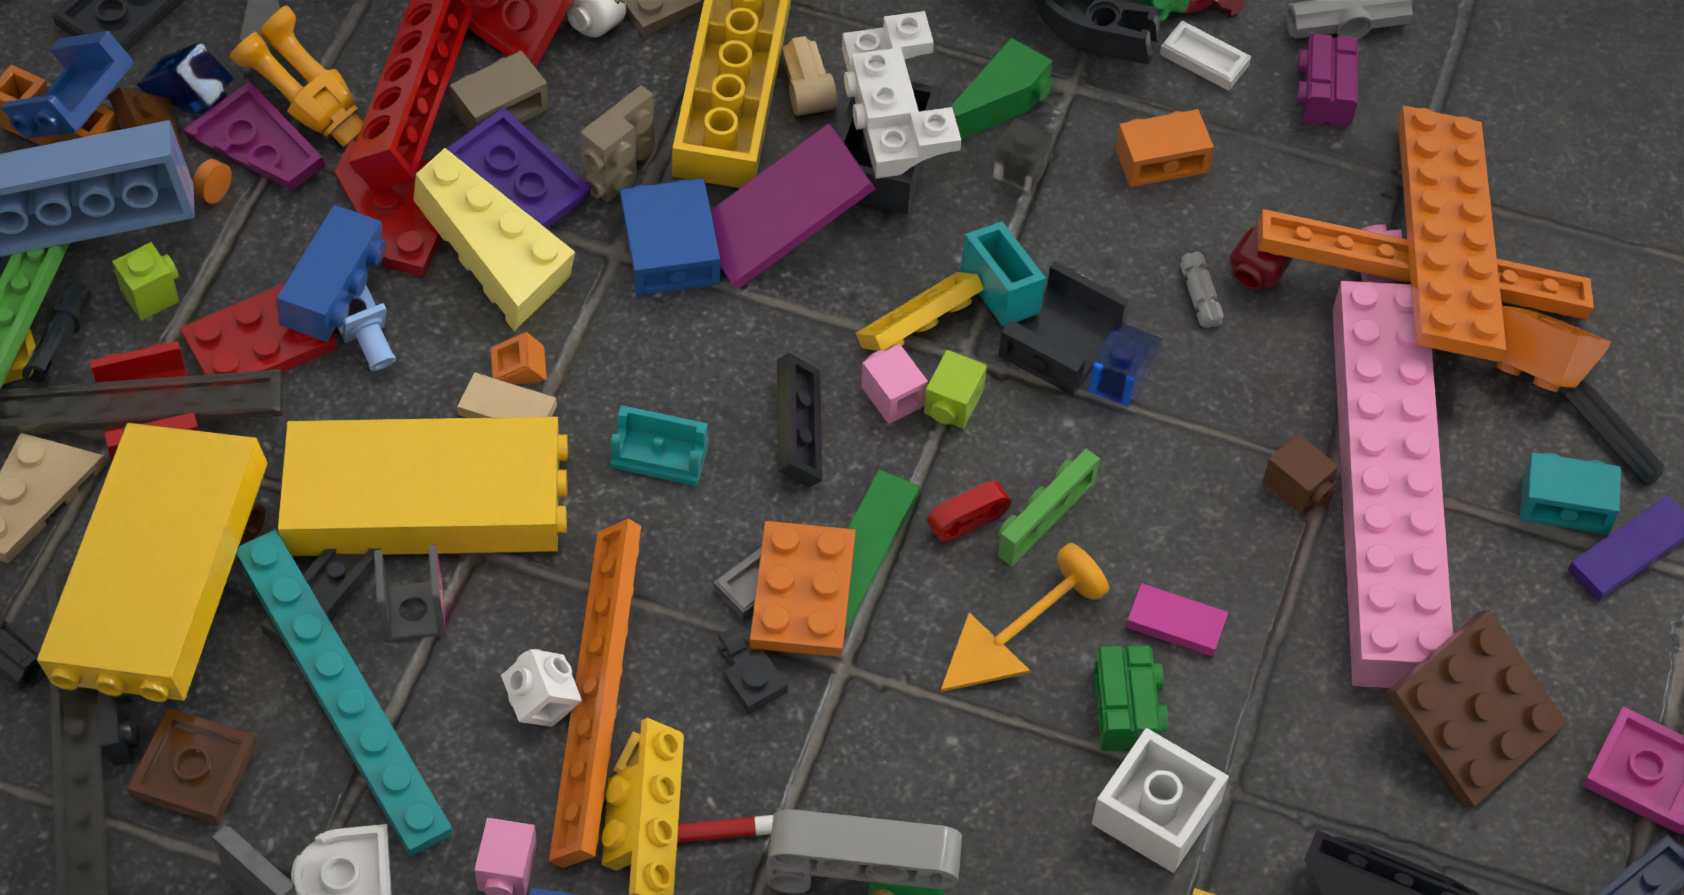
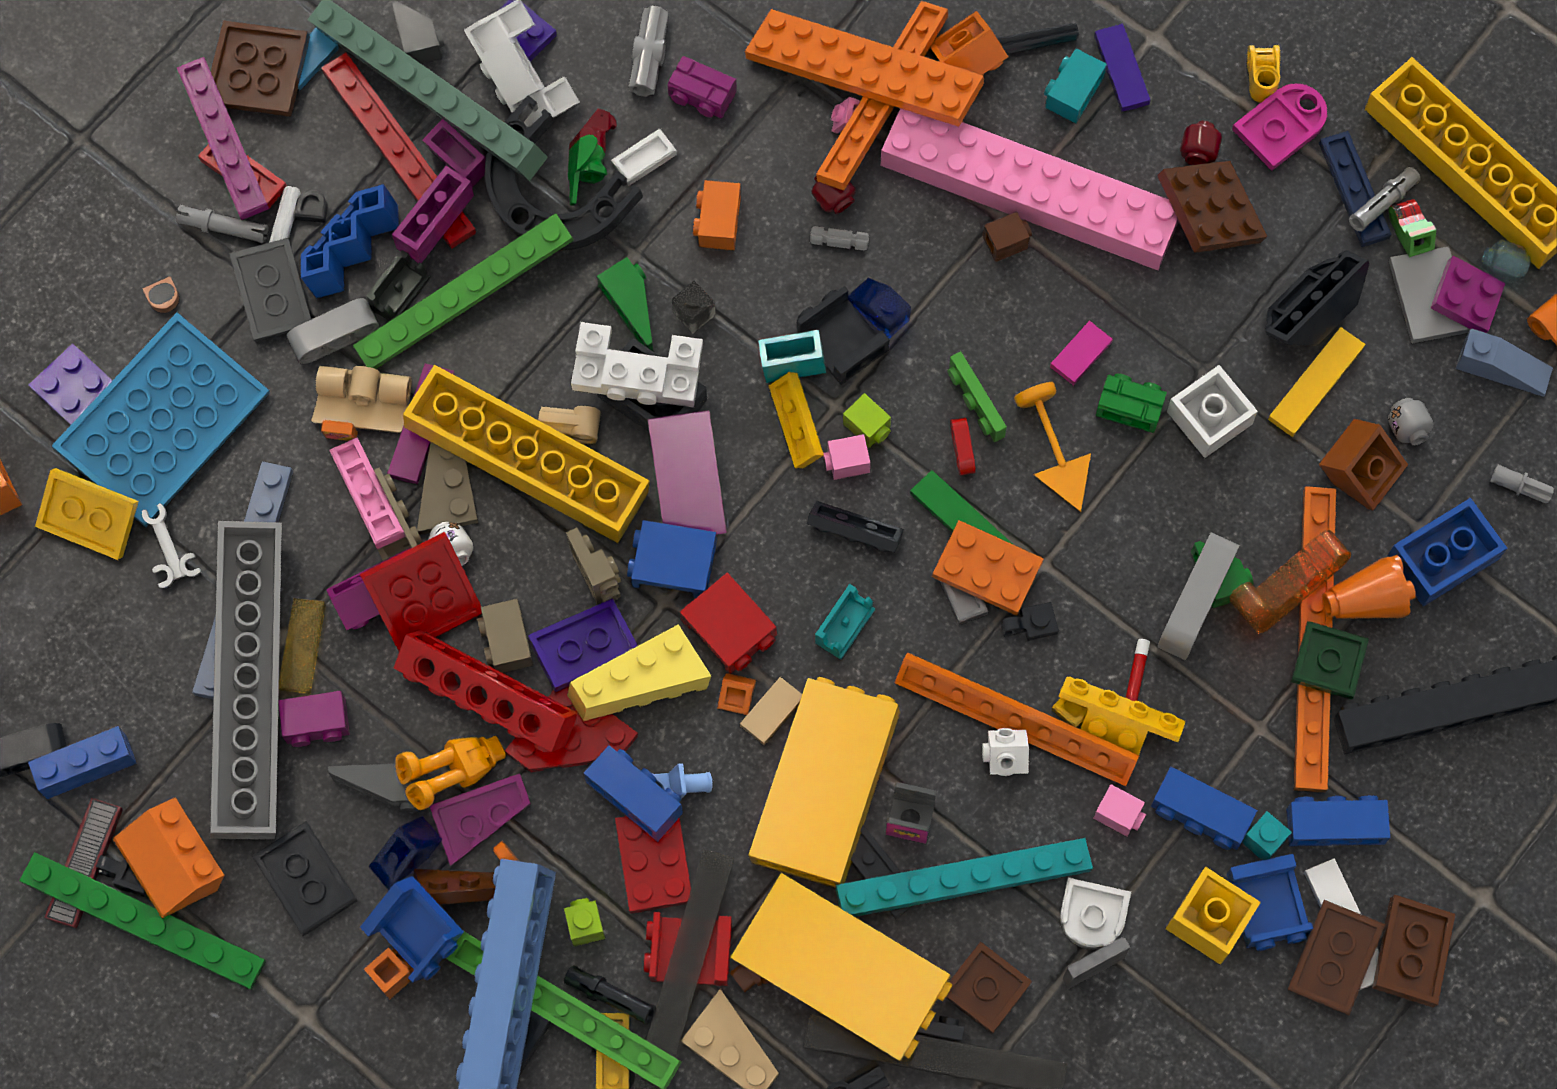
camera: 65 degrees left, 15 degrees up
(603, 317) = (729, 623): none -> red panel
(1570, 672) = (1200, 143): none -> dark red head

